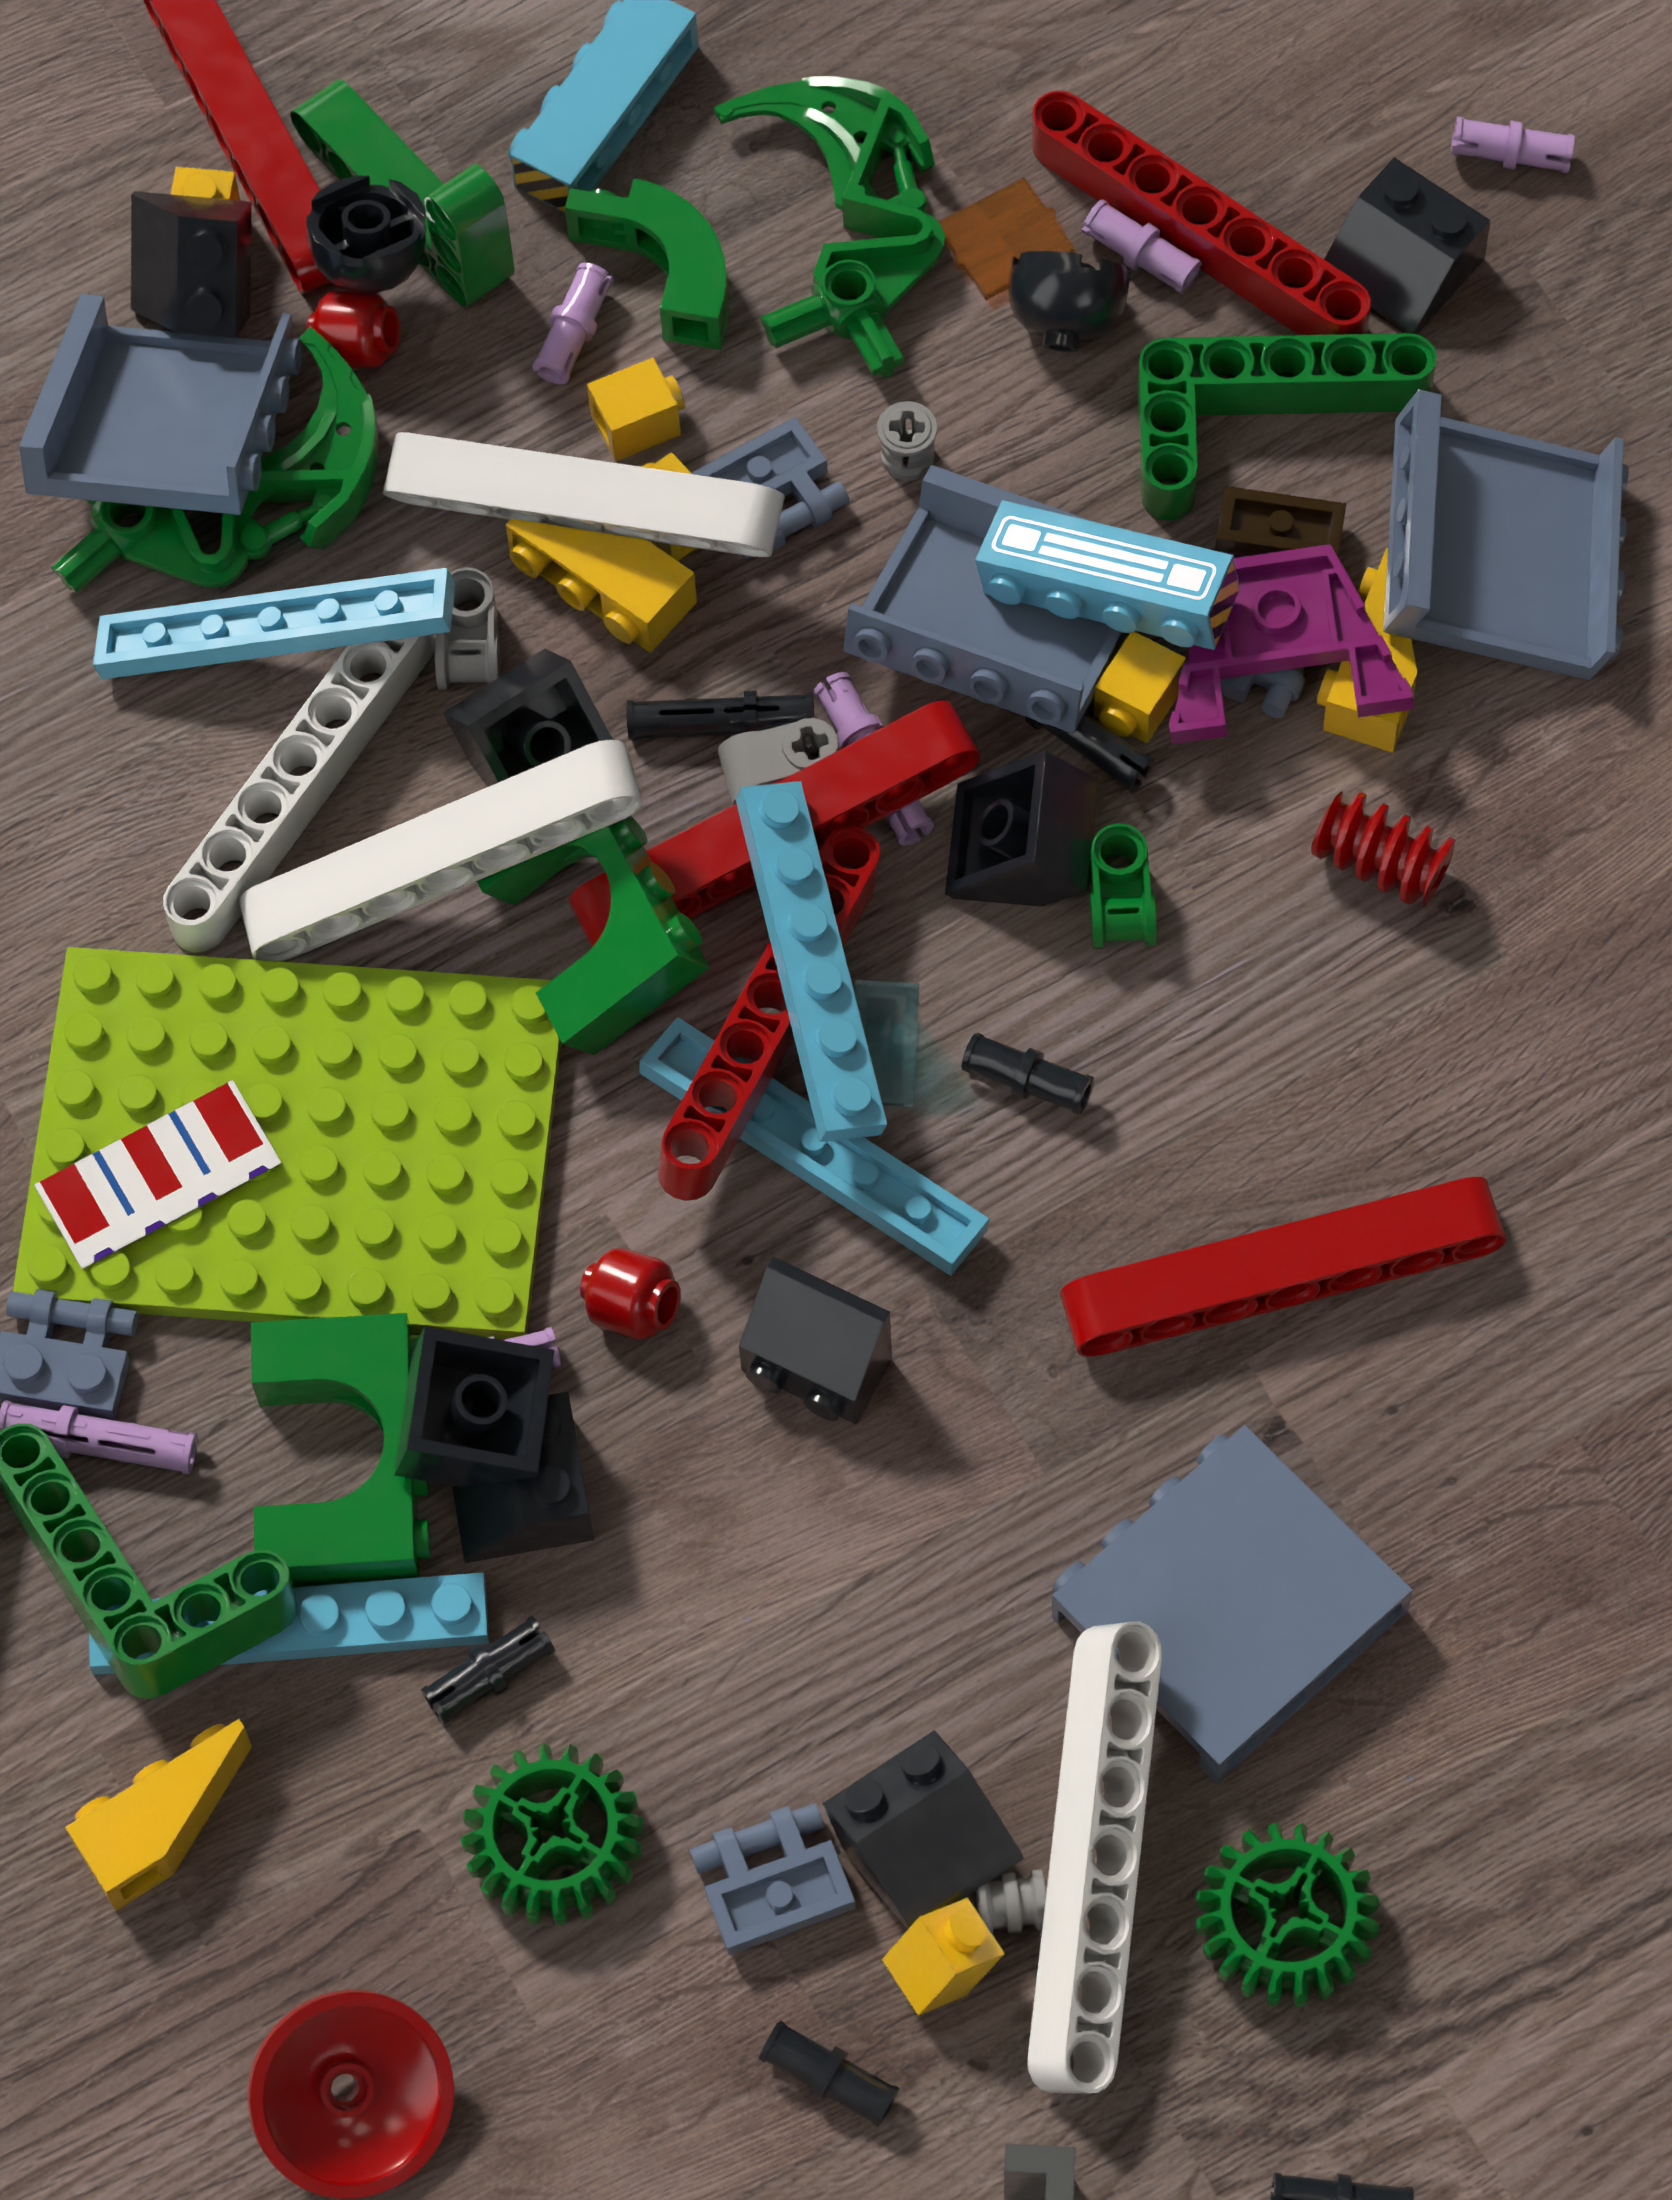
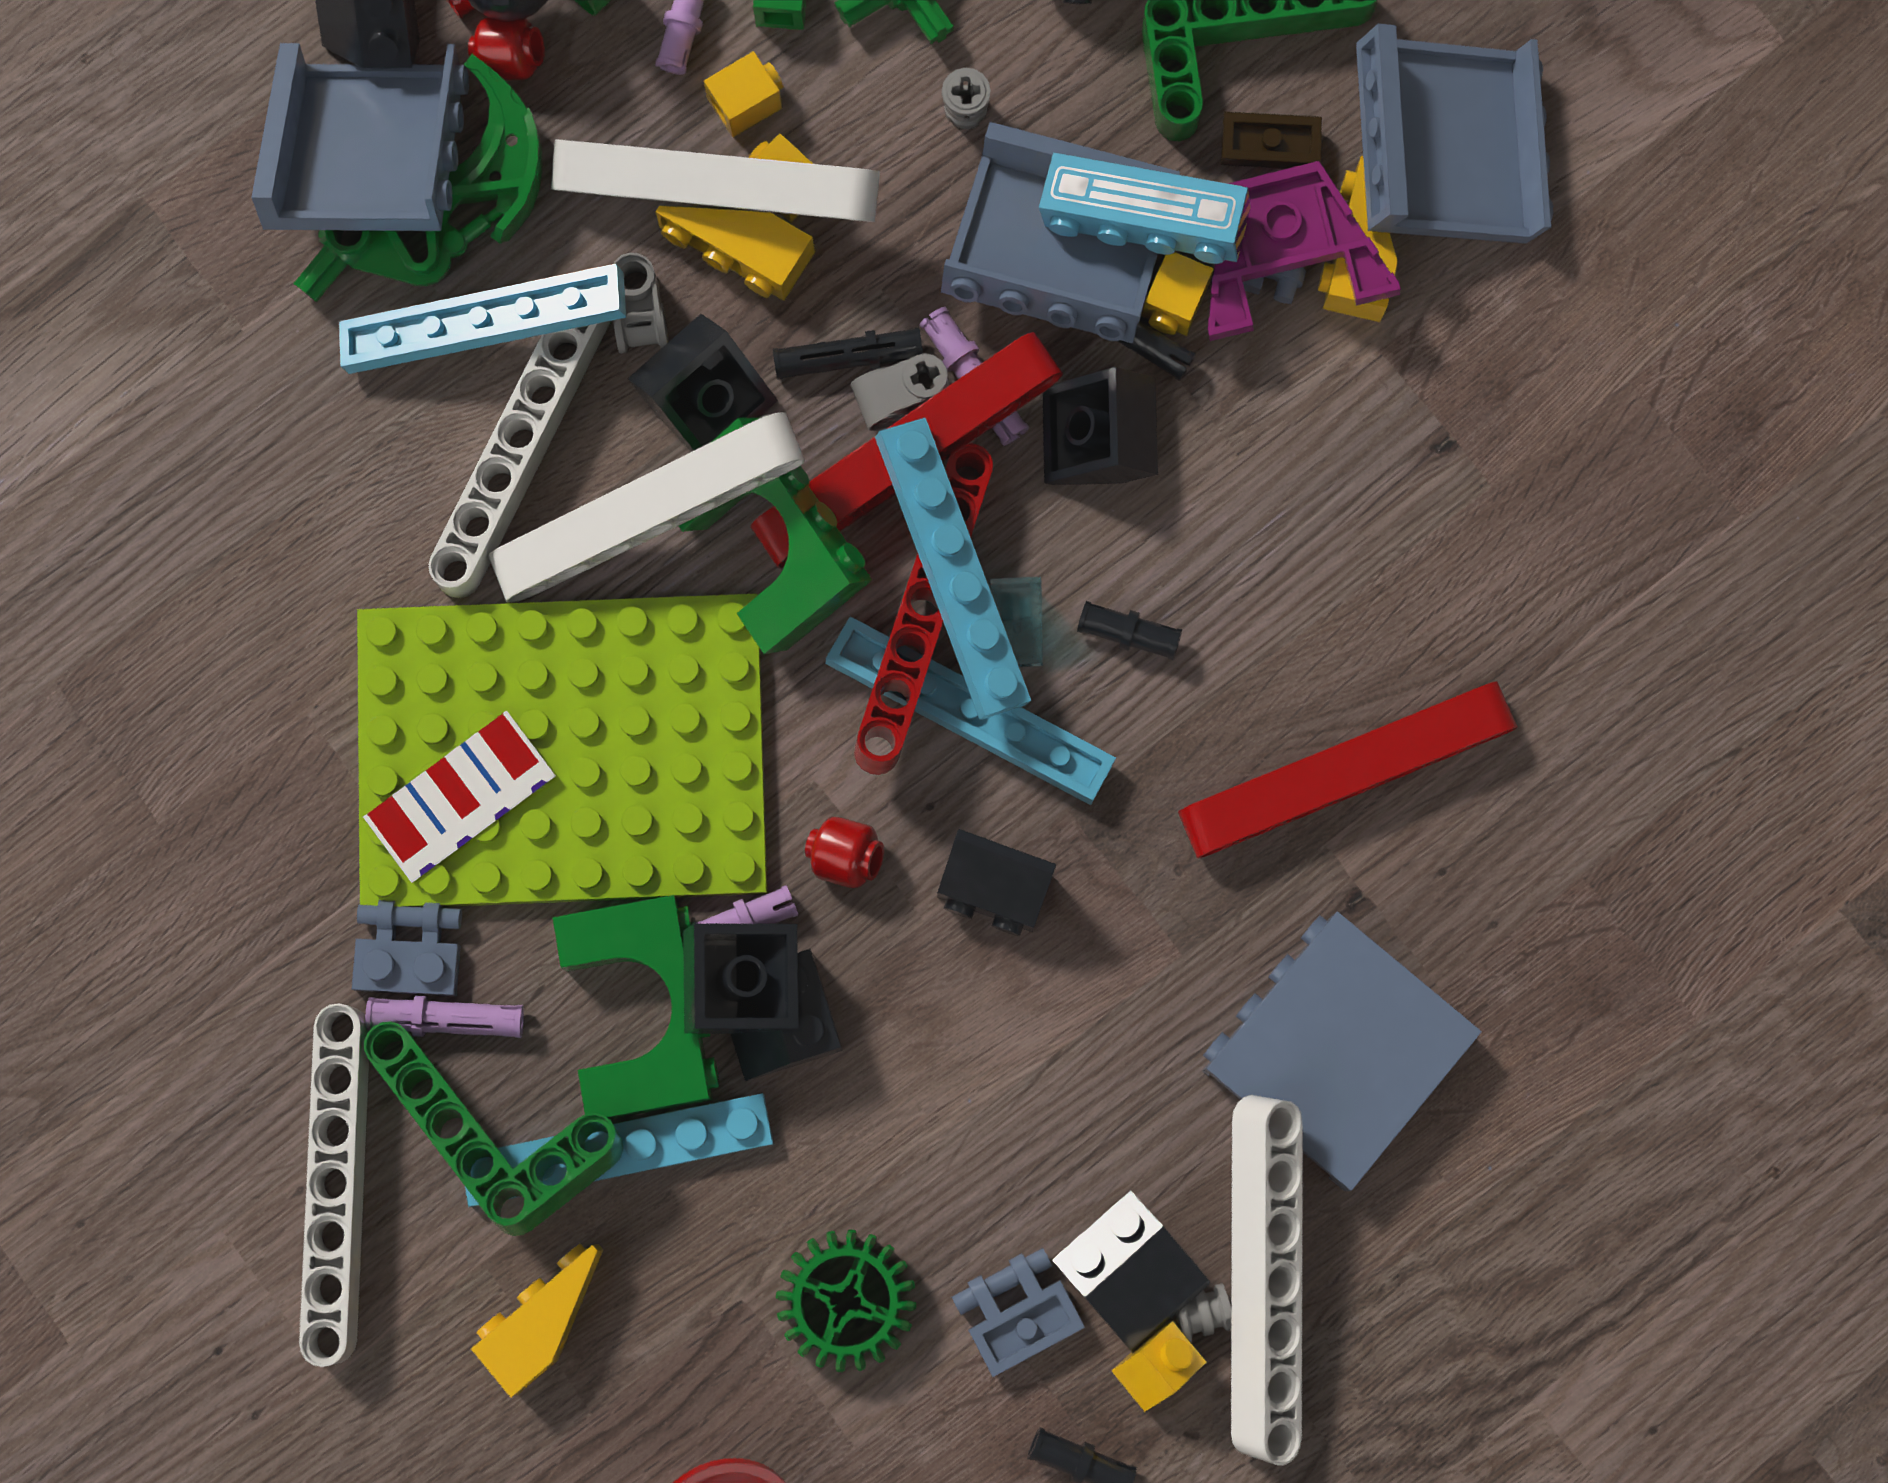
camera: 10 degrees left, 15 degrees up
(487, 1670) = (776, 1171): black pin -> none
(788, 463) = (858, 134): sand blue plate -> none
(1121, 898) = (1186, 478): green piece -> none
(1308, 1929) = (1422, 1274): green gear -> none
(1382, 849) = (1387, 411): red piece -> none

